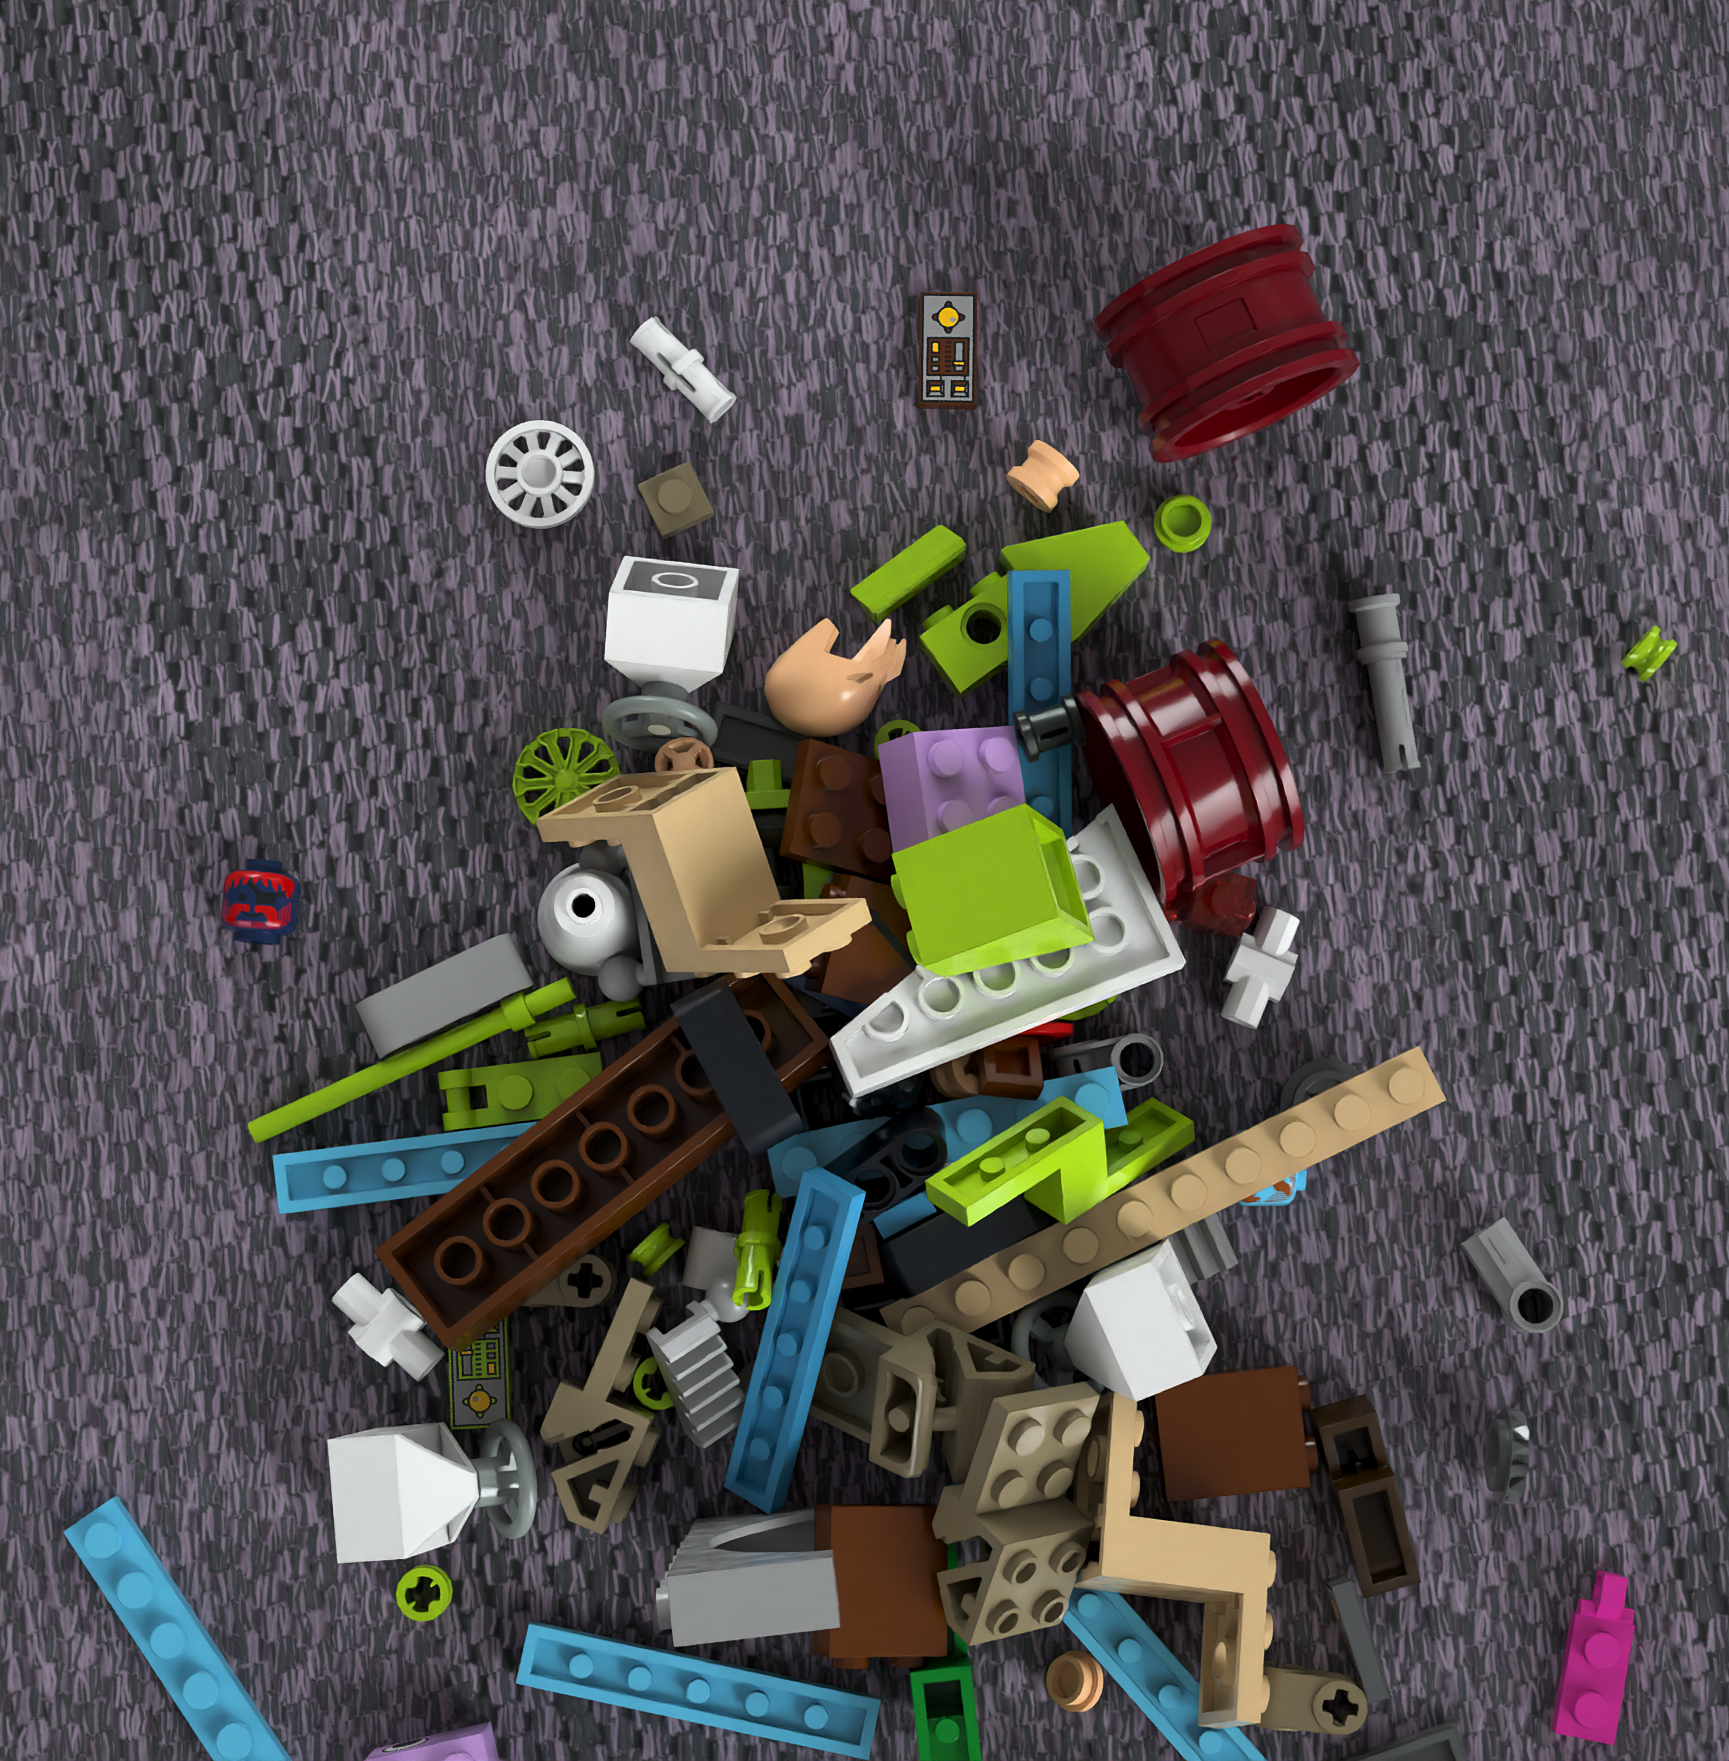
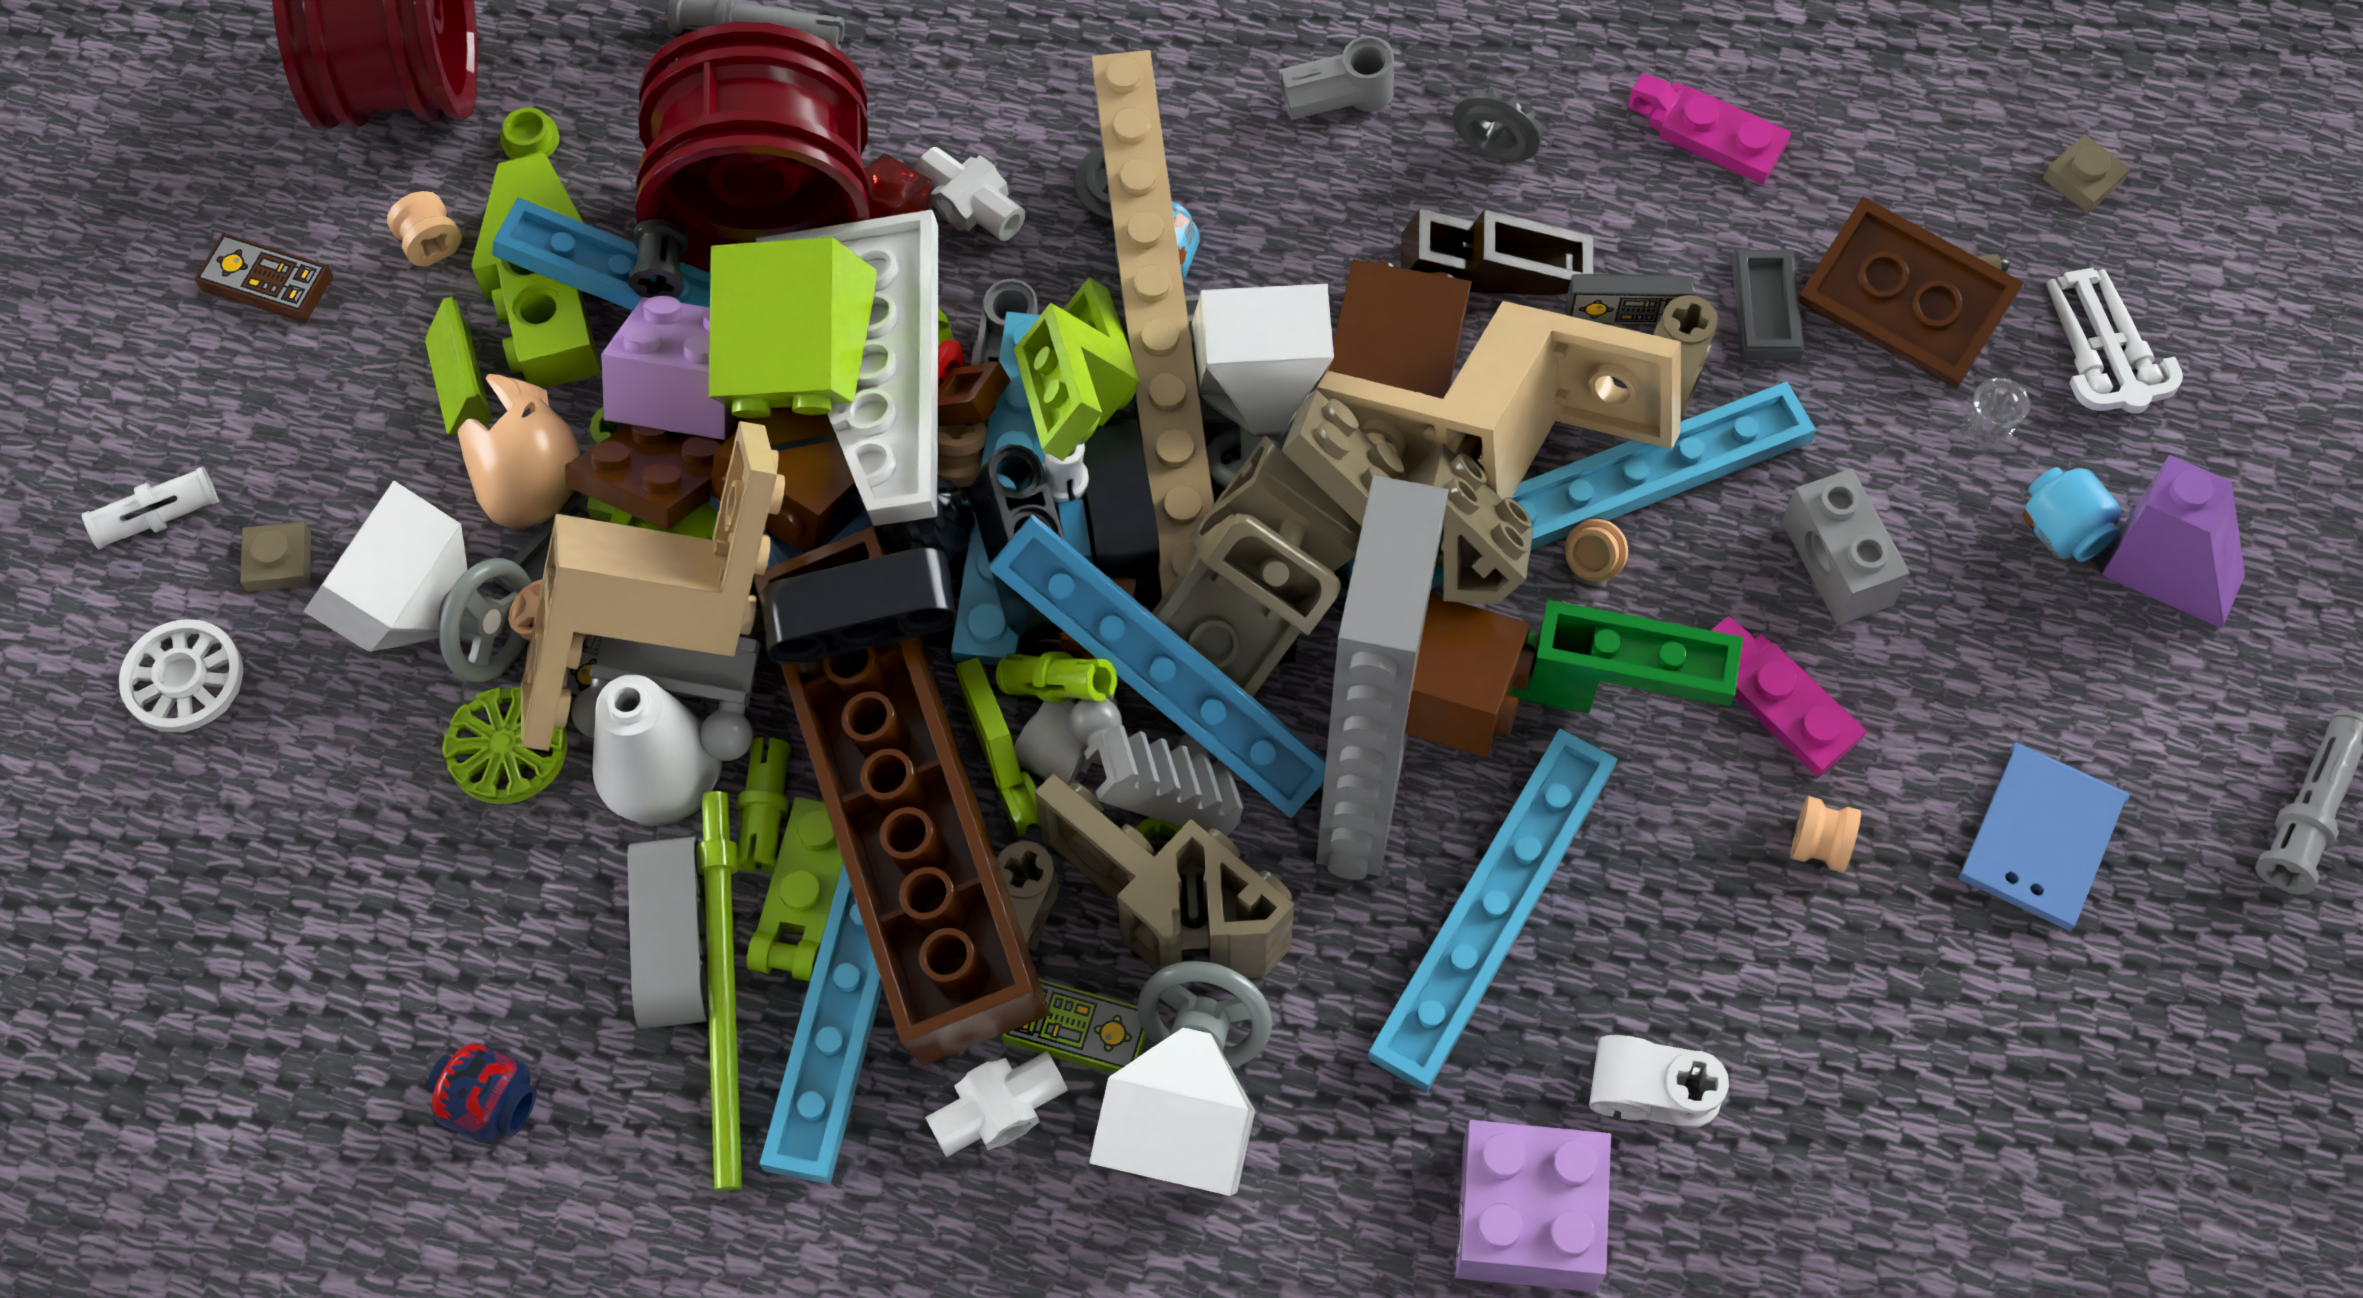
camera: 70 degrees left, 20 degrees down
(412, 1579) = (1319, 1154): lime bush -> none
(709, 1199) = (988, 724): none -> lime tile

